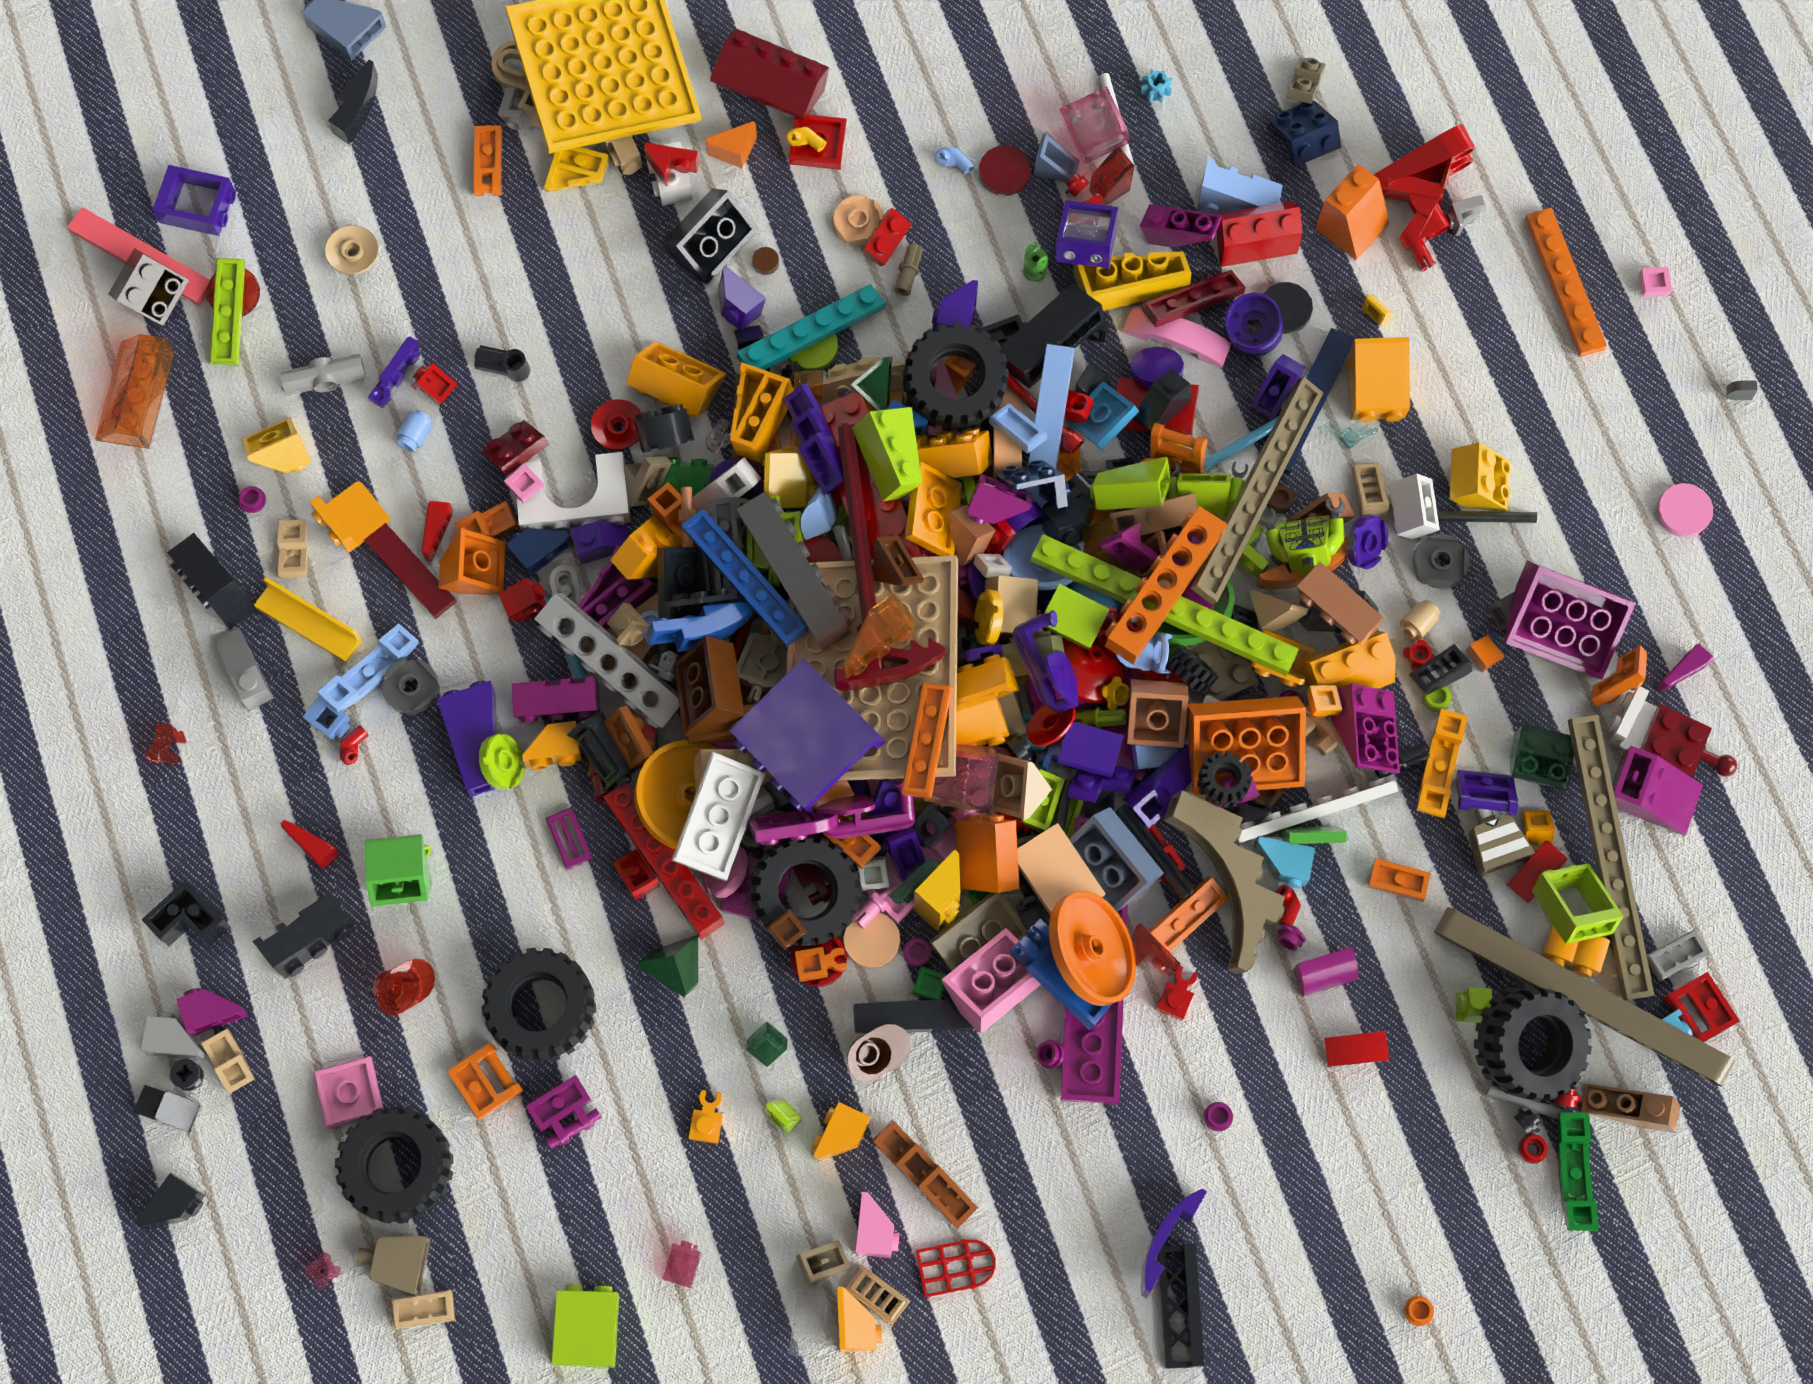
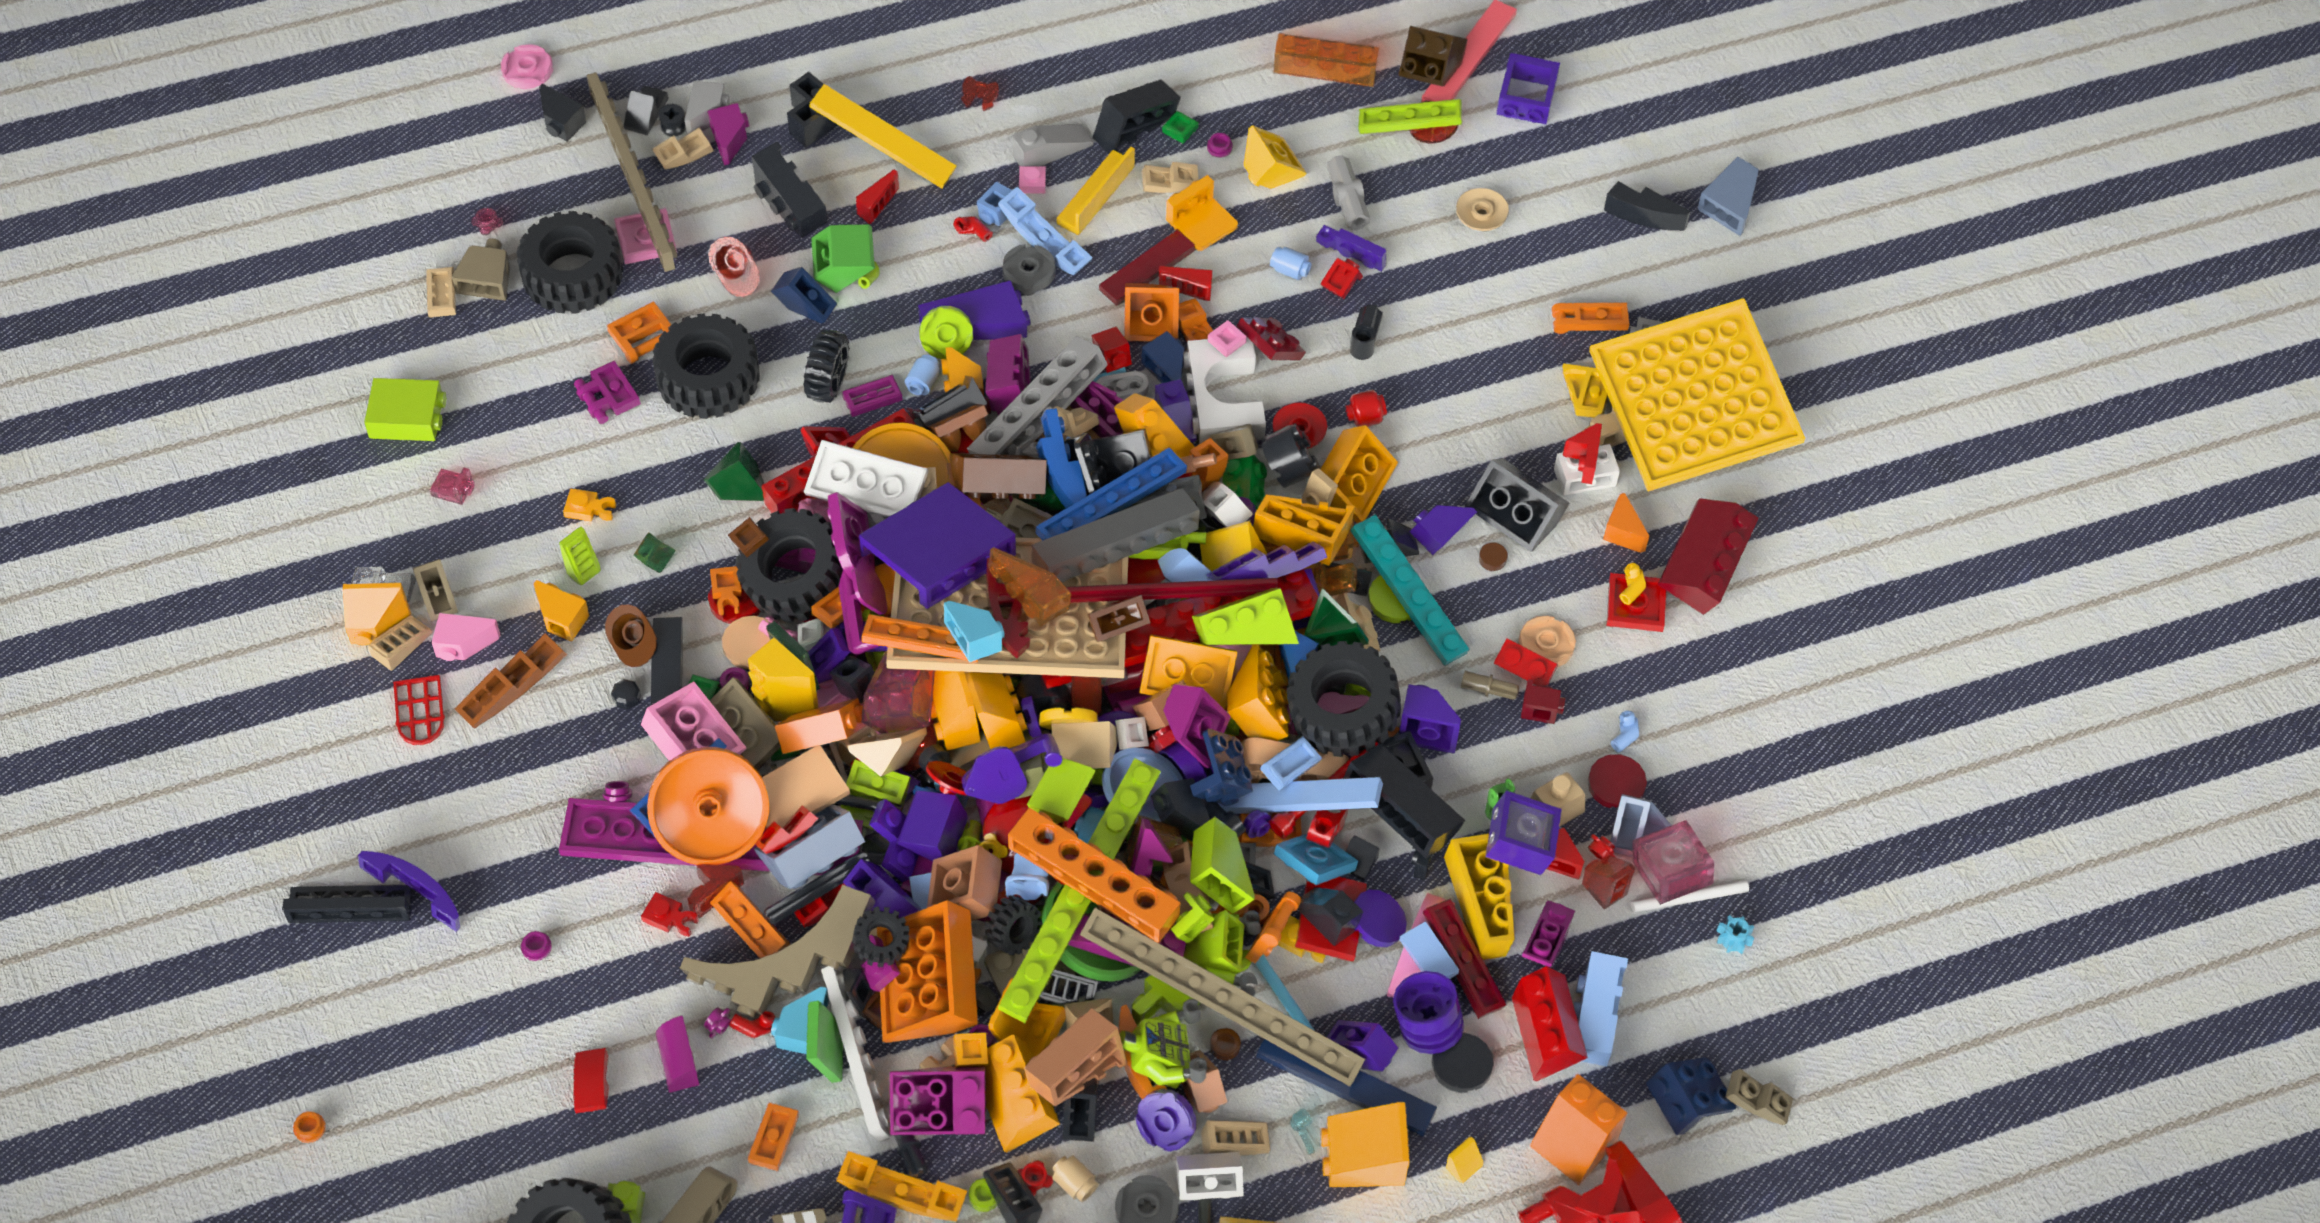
camera: 90 degrees right, 15 degrees down
(92, 1252) = (527, 66): none -> bright pink tile
(222, 539) = (1180, 127): none -> green tile
(232, 839) = (883, 136): none -> yellow tile
(253, 1115) = (634, 177): none -> dark tan plate
(288, 687) = (1032, 179): none -> bright pink plate
(441, 914) = (803, 295): none -> dark blue slope
(544, 879) = (826, 366): none -> black gear
(549, 786) = (923, 375): none -> light blue brick
(599, 363) = (1366, 408): none -> red head
(711, 405) = (1319, 489): none -> tan plate
(928, 225) = (1542, 703): none -> dark red brick
(930, 686) = (973, 630): none -> medium azure slope
(935, 1057) = (626, 694): none -> black tile
(1034, 214) = (1564, 794): none -> tan torso
(1069, 464) = (1257, 823): none -> dark purple plate
(1112, 880) = (778, 837): none -> slope
(1192, 499) = (1194, 921): none -> lime bracket
(1196, 324) = (1428, 951): none -> light blue tile

